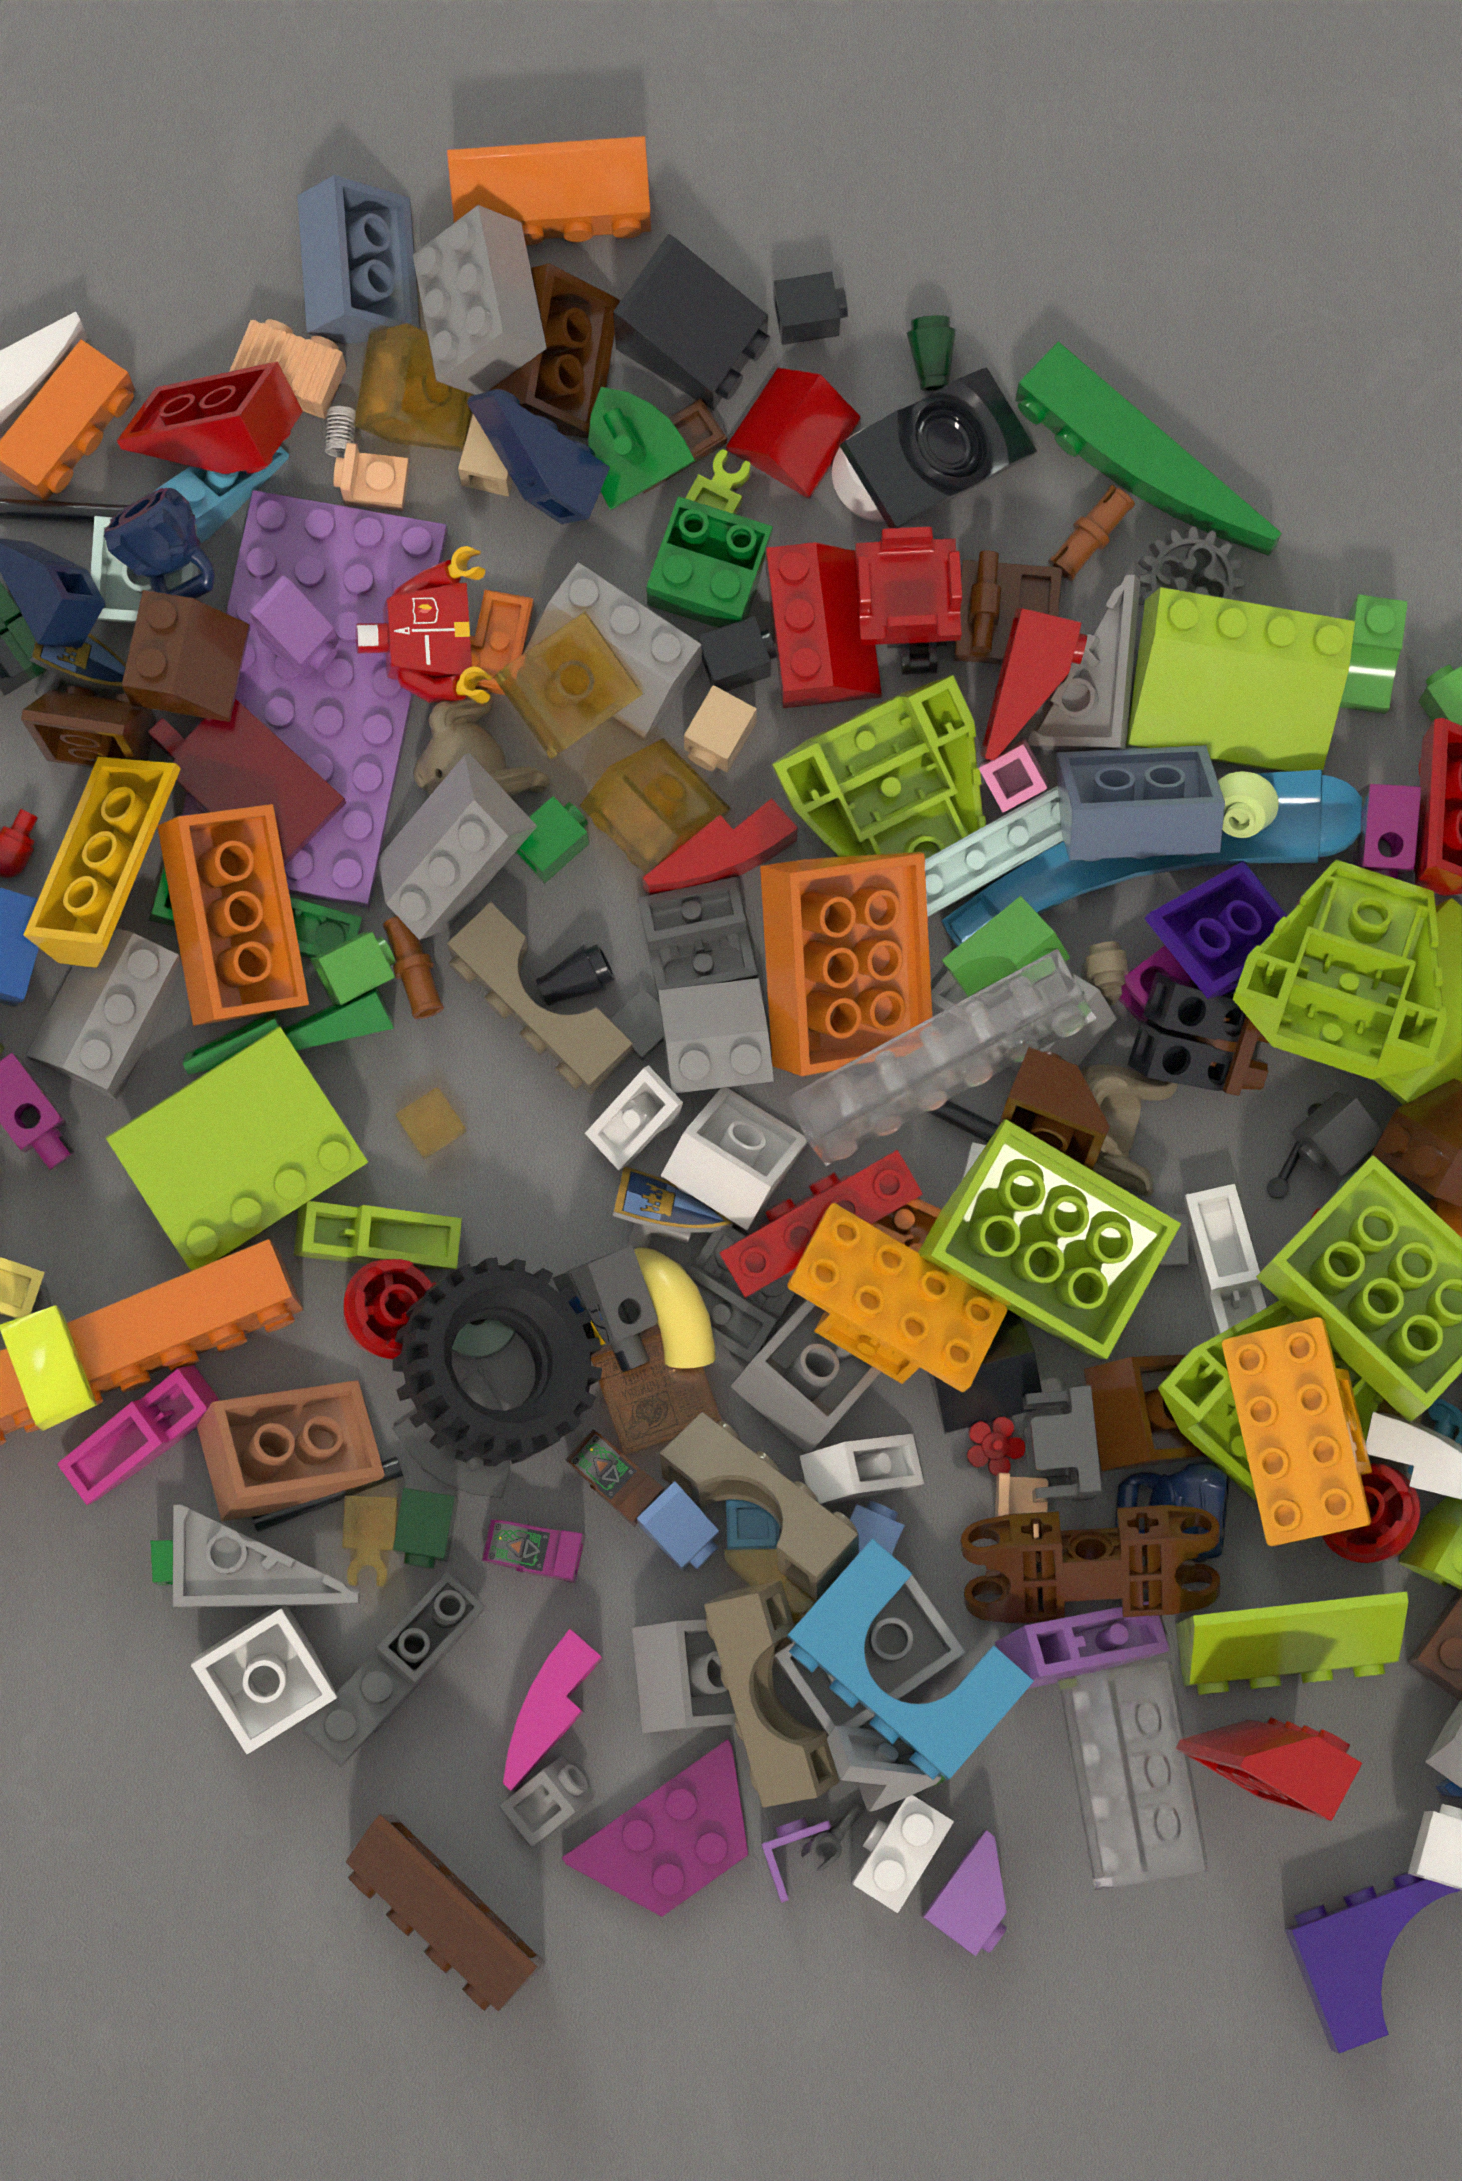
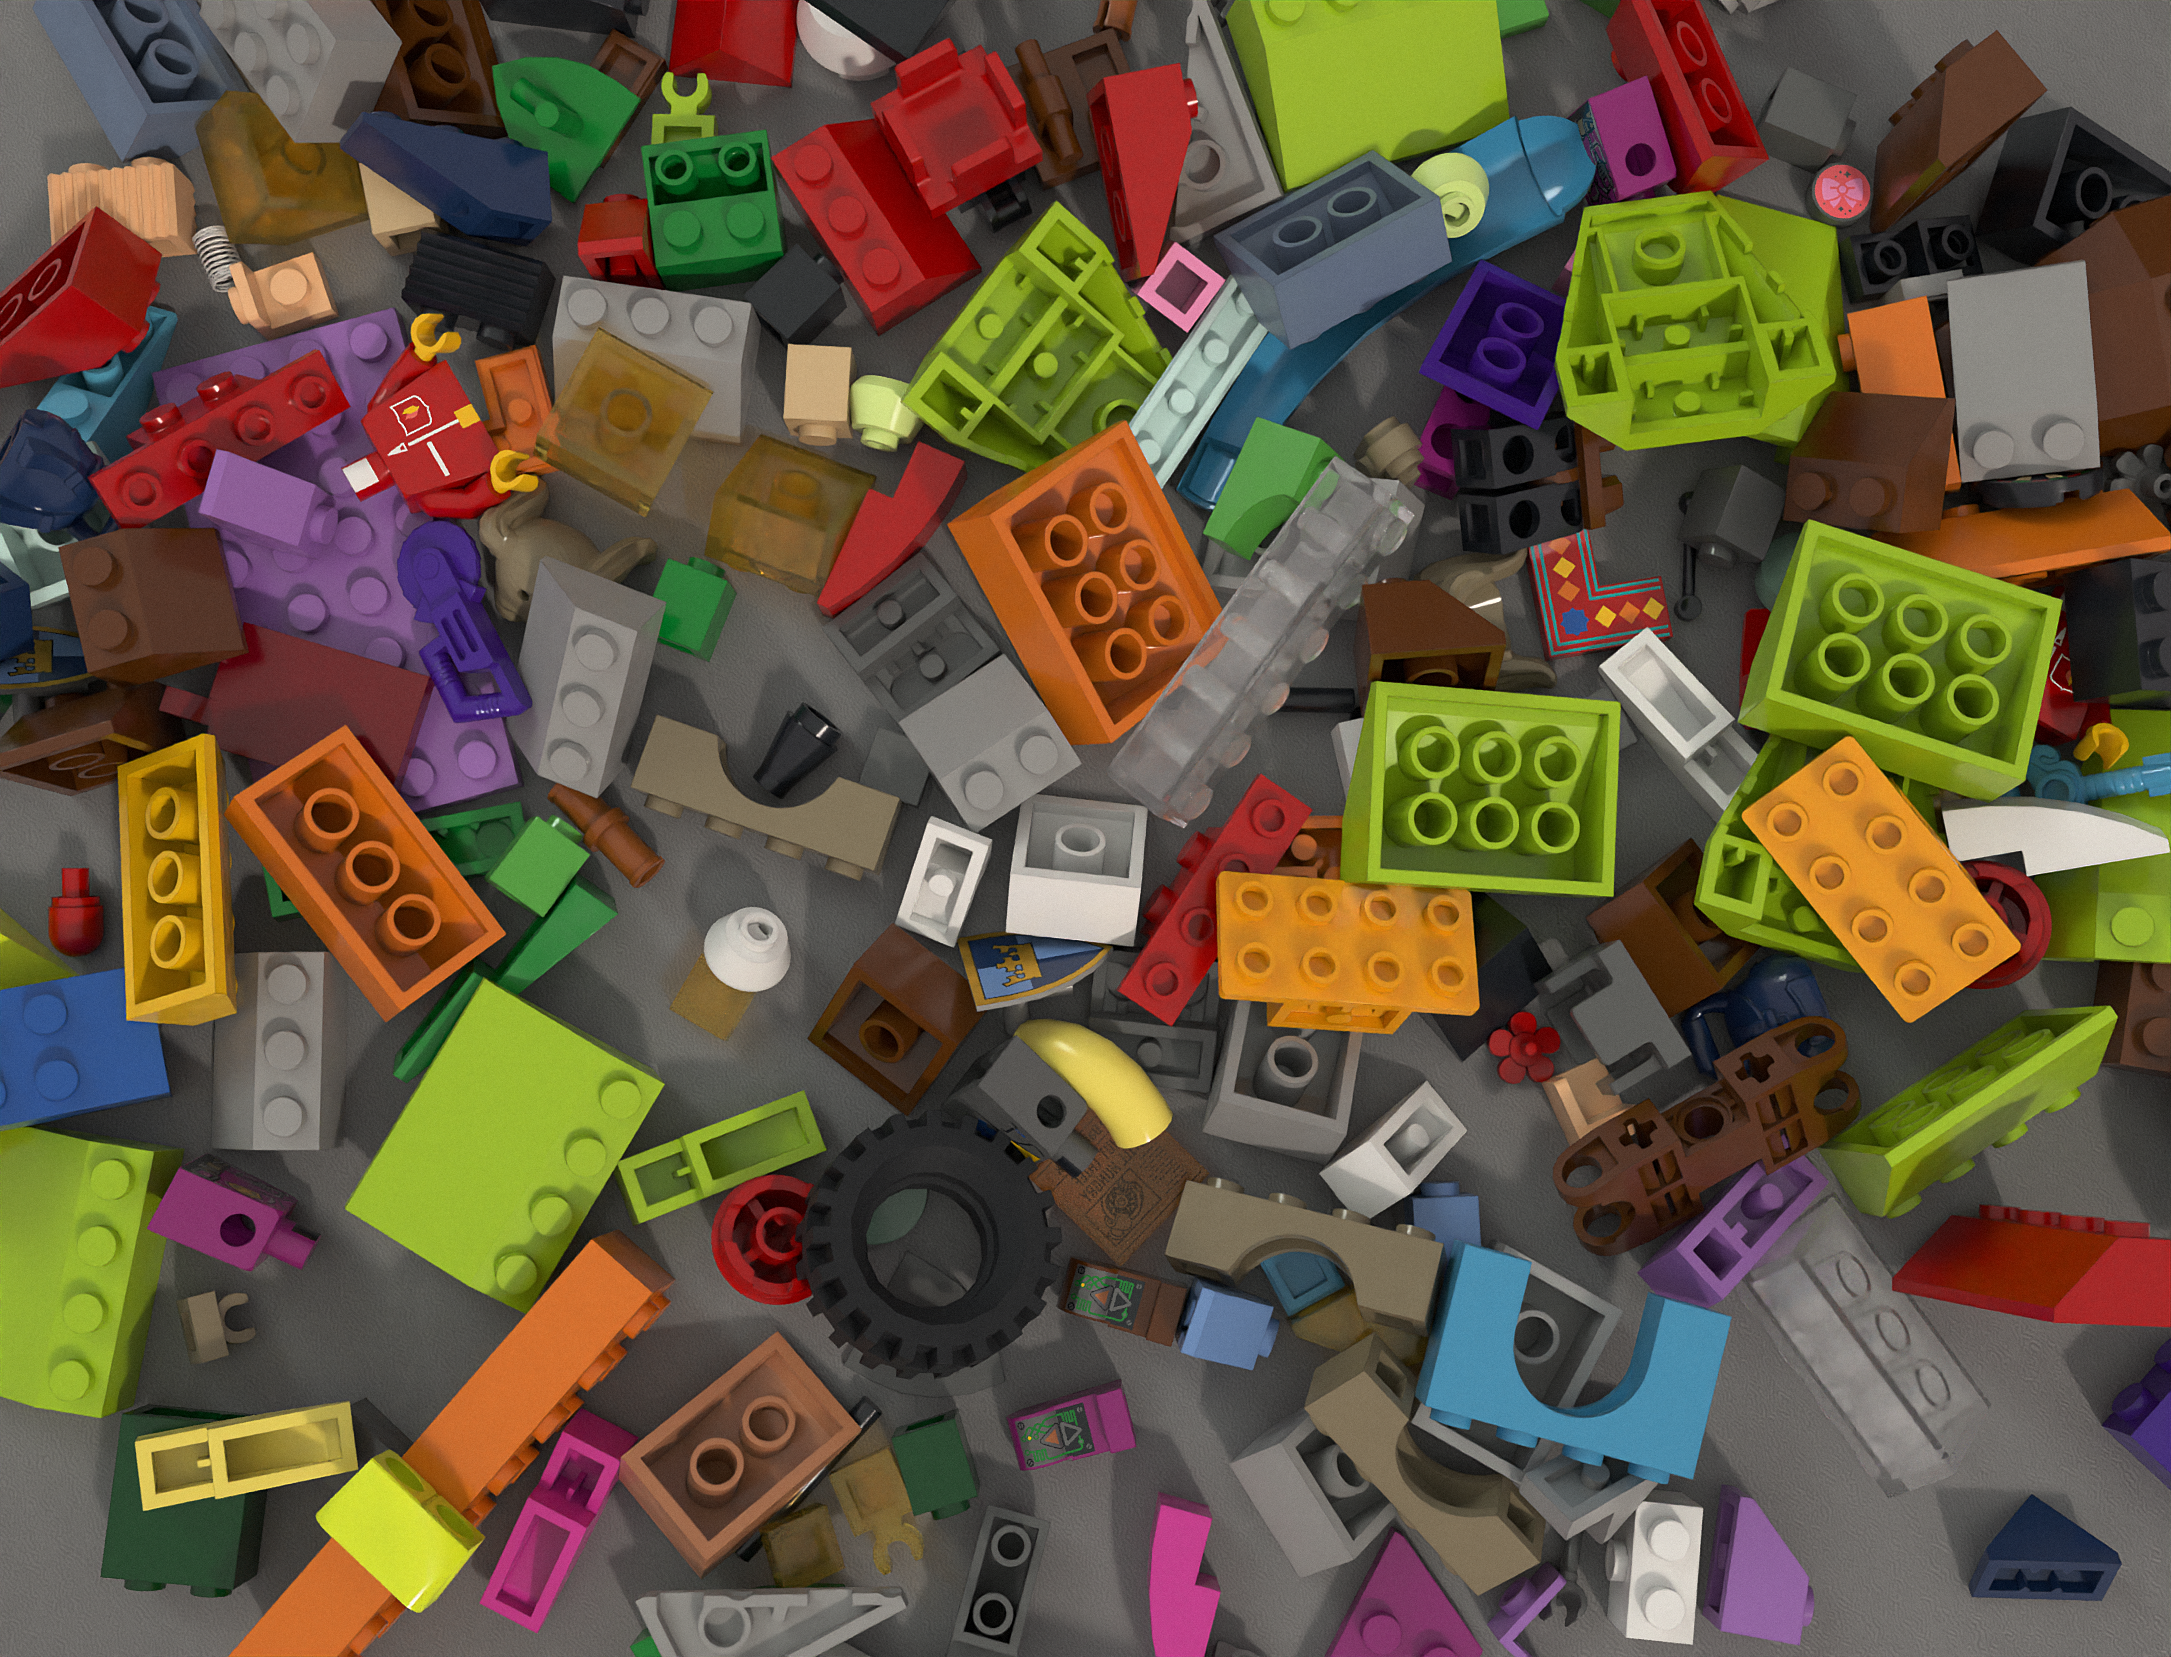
camera: 30 degrees left, 5 degrees up
(259, 554) = (229, 415): none -> red bracket
(302, 1536) = (802, 1547): none -> clear yellow plate
(385, 734) = (441, 579): none -> dark purple piece
(472, 1099) = (748, 949): none -> white cone
(512, 541) = (478, 289): none -> black brick
(554, 1200) = (898, 1019): none -> reddish brown slope
(629, 556) = (618, 242): none -> red slope
(754, 765) = (880, 414): none -> yellowish green cone
(1188, 1996) = (2044, 1558): none -> dark blue slope
(1195, 1155) = (1579, 614): none -> red tile

